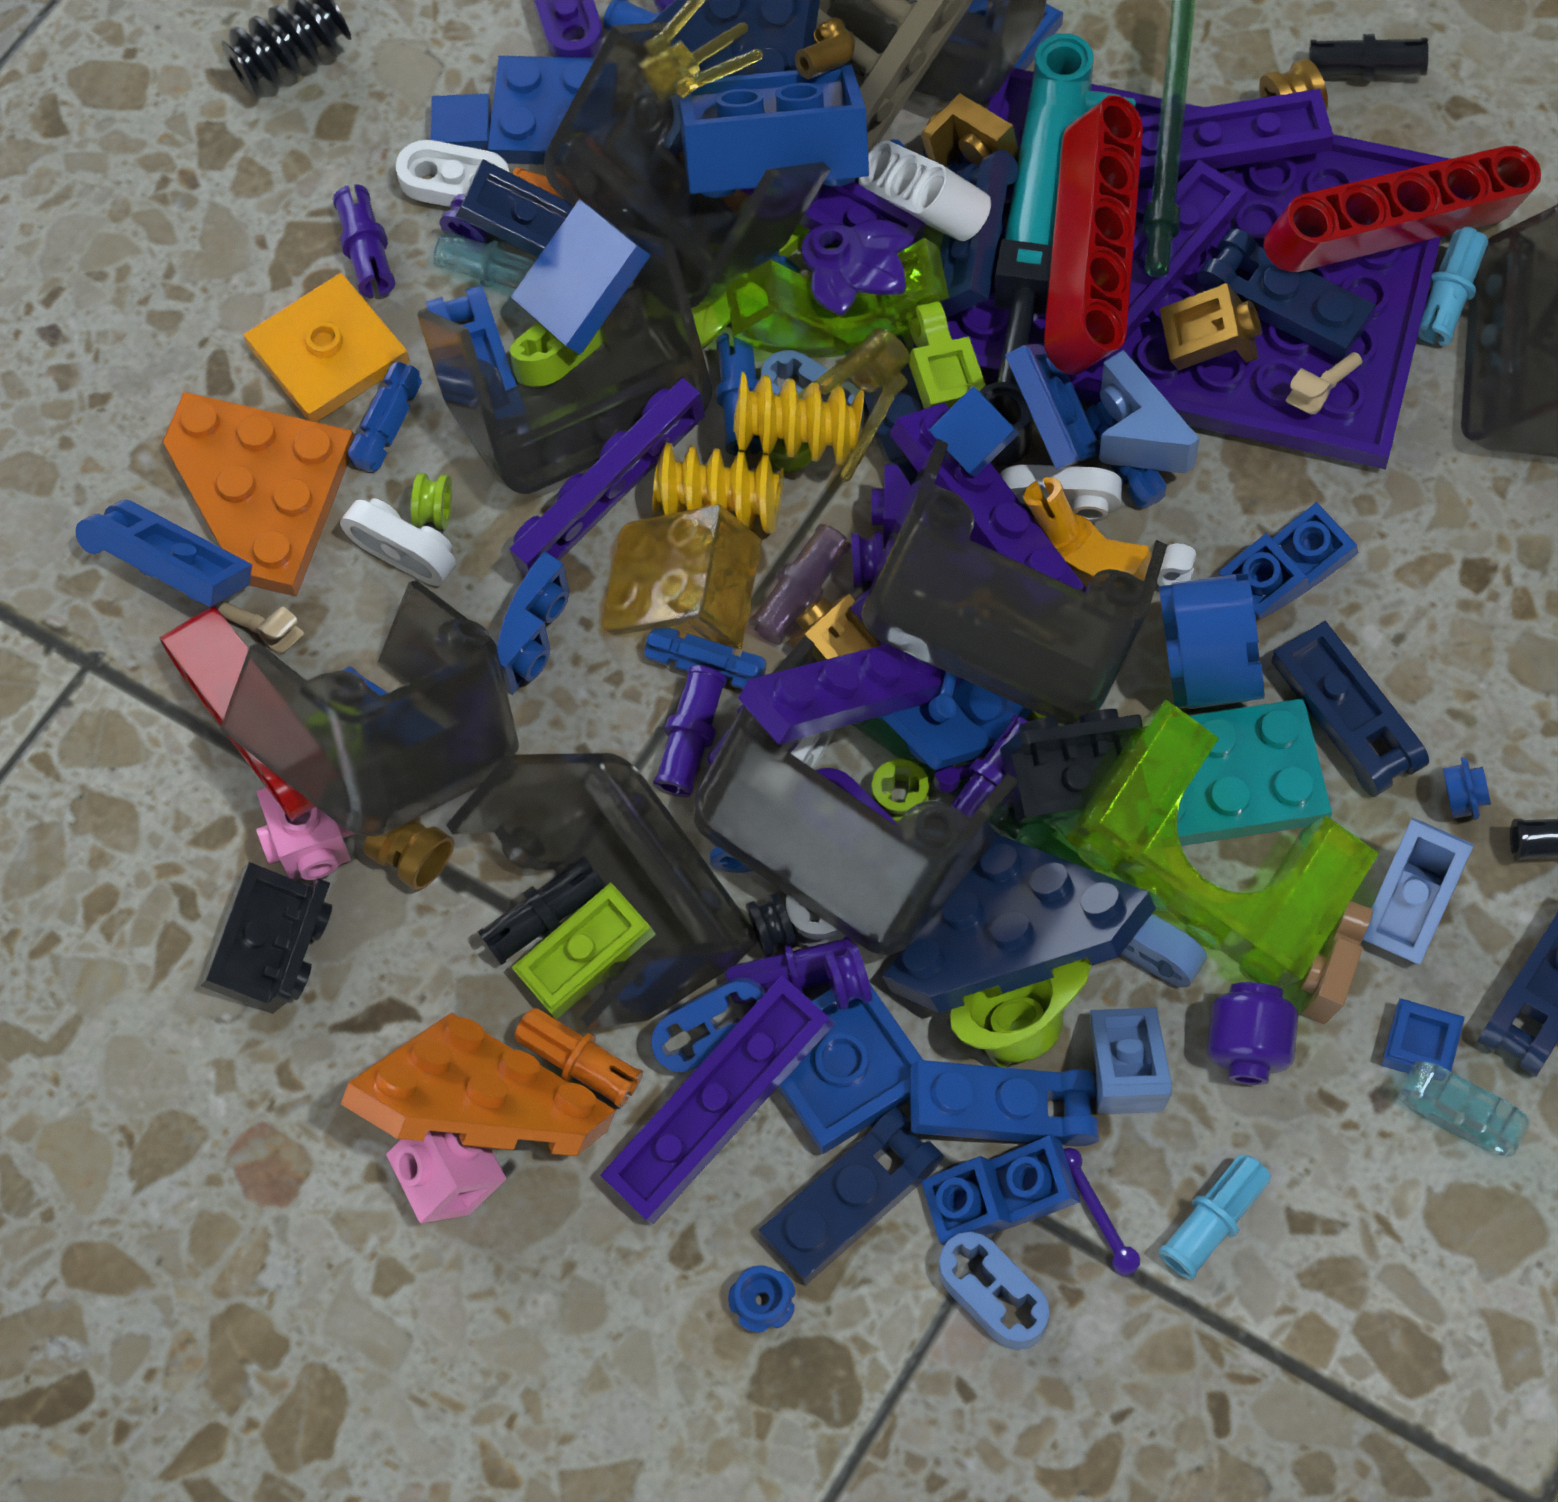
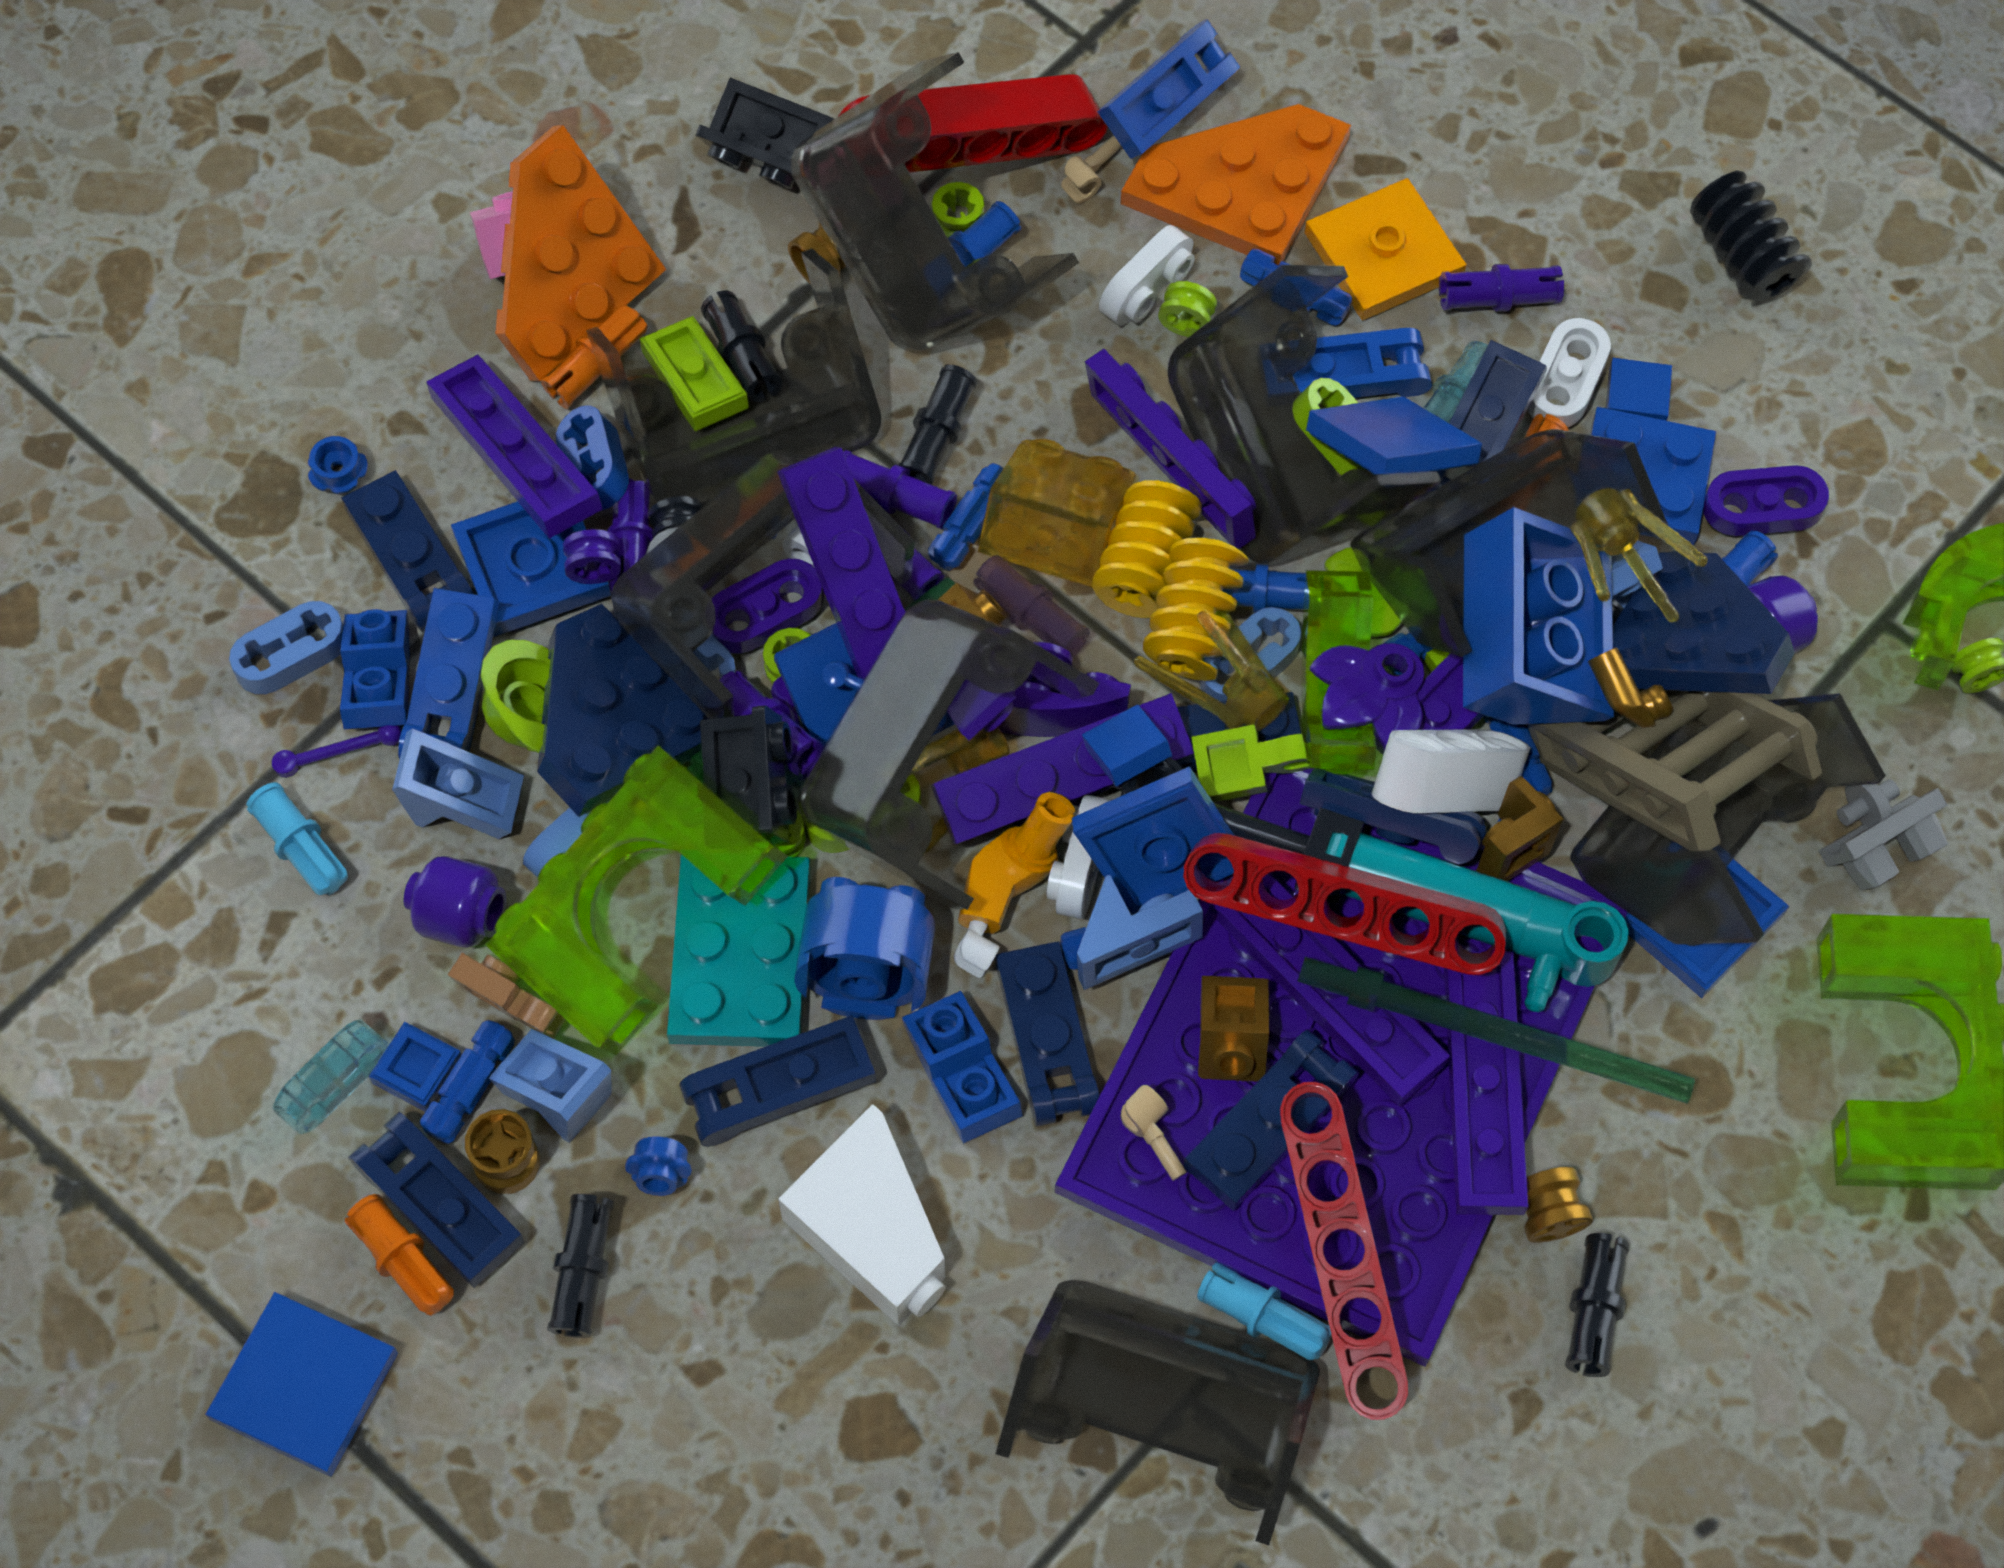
camera: 95 degrees right, 0 degrees up
(523, 635) = (1026, 362): blue slope -> none
(606, 705) = (938, 422): none -> black pin
(1237, 498) = (1046, 1031): none -> dark blue plate
(1426, 986) = (467, 1082): none -> blue axle
(1460, 601) = (868, 1220): none -> white slope
(1501, 915) = (496, 1138): none -> pearl gold wheel

